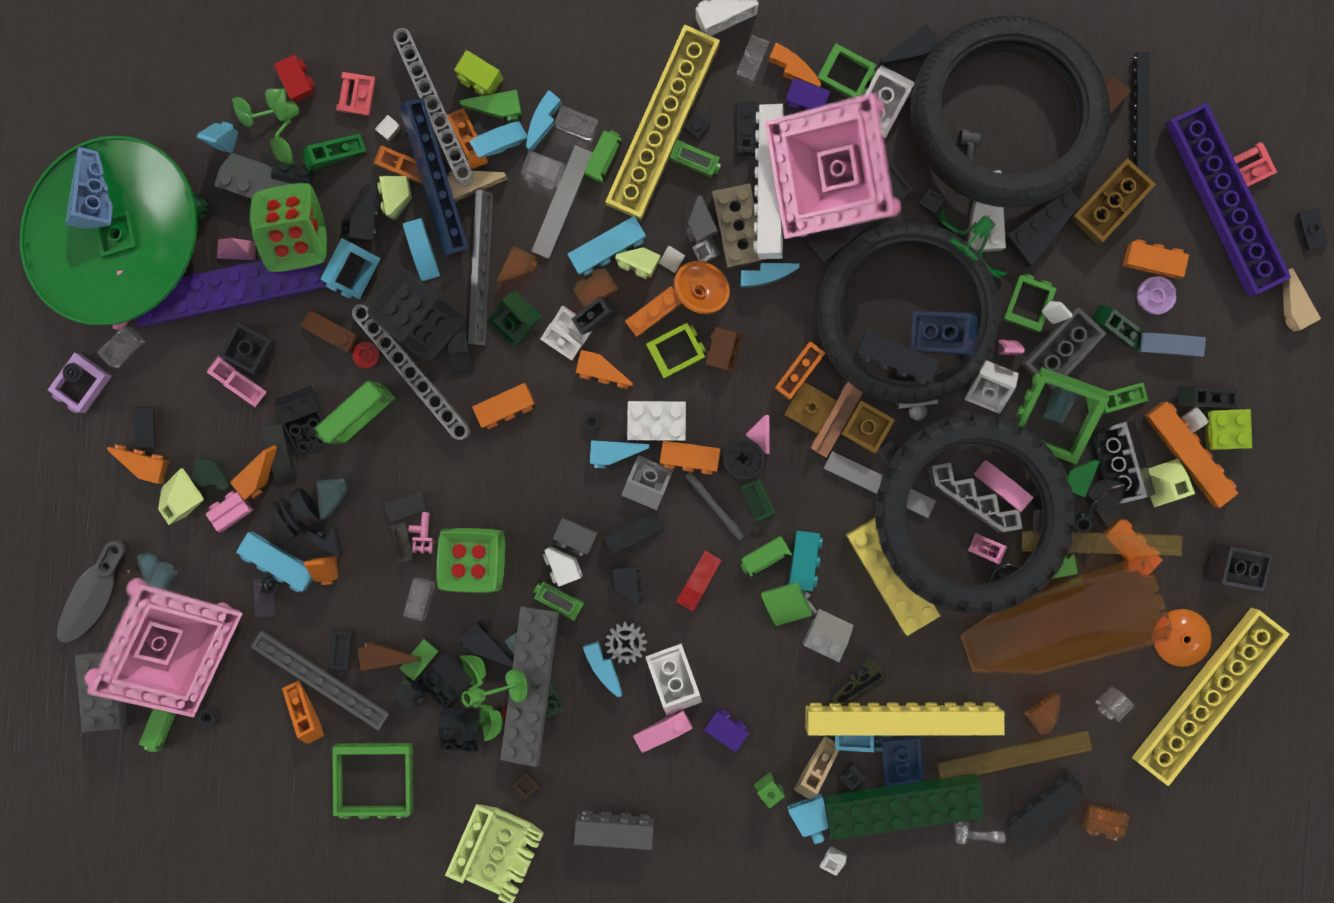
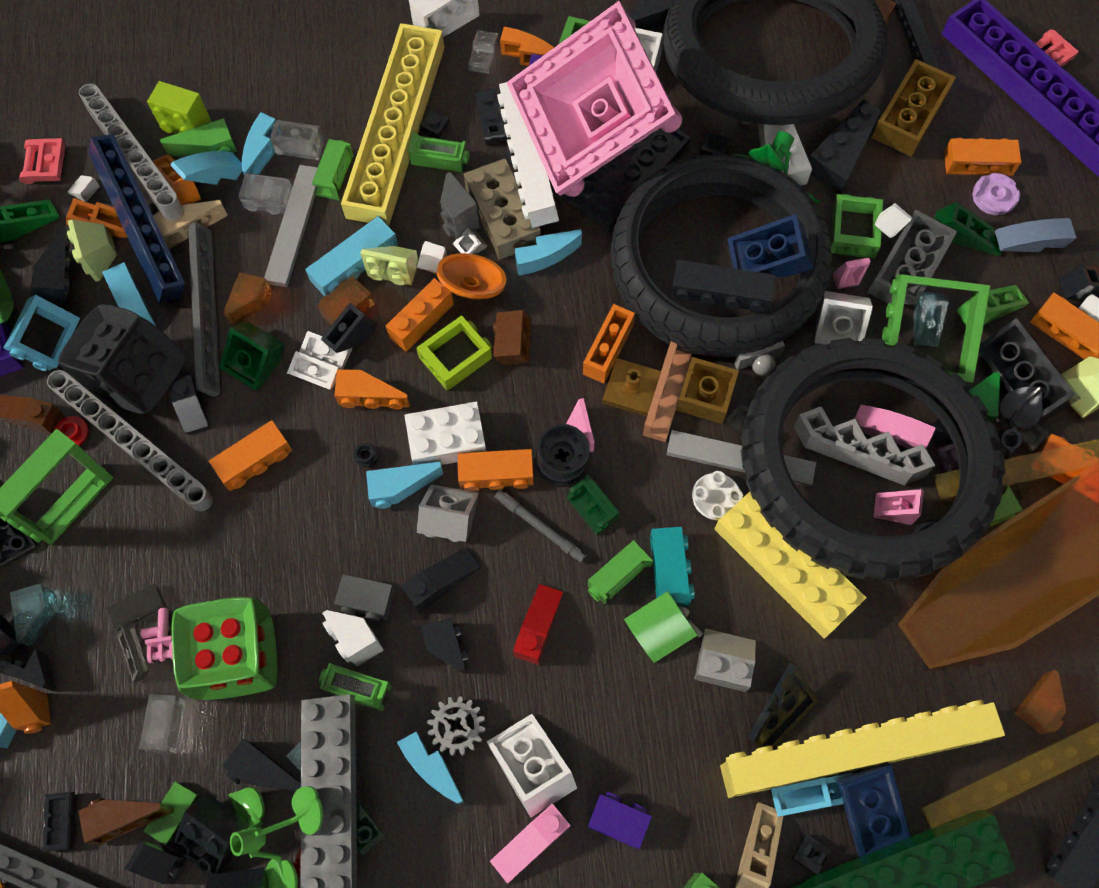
camera: 10 degrees left, 20 degrees down
(853, 511) = (715, 495): none -> white dish

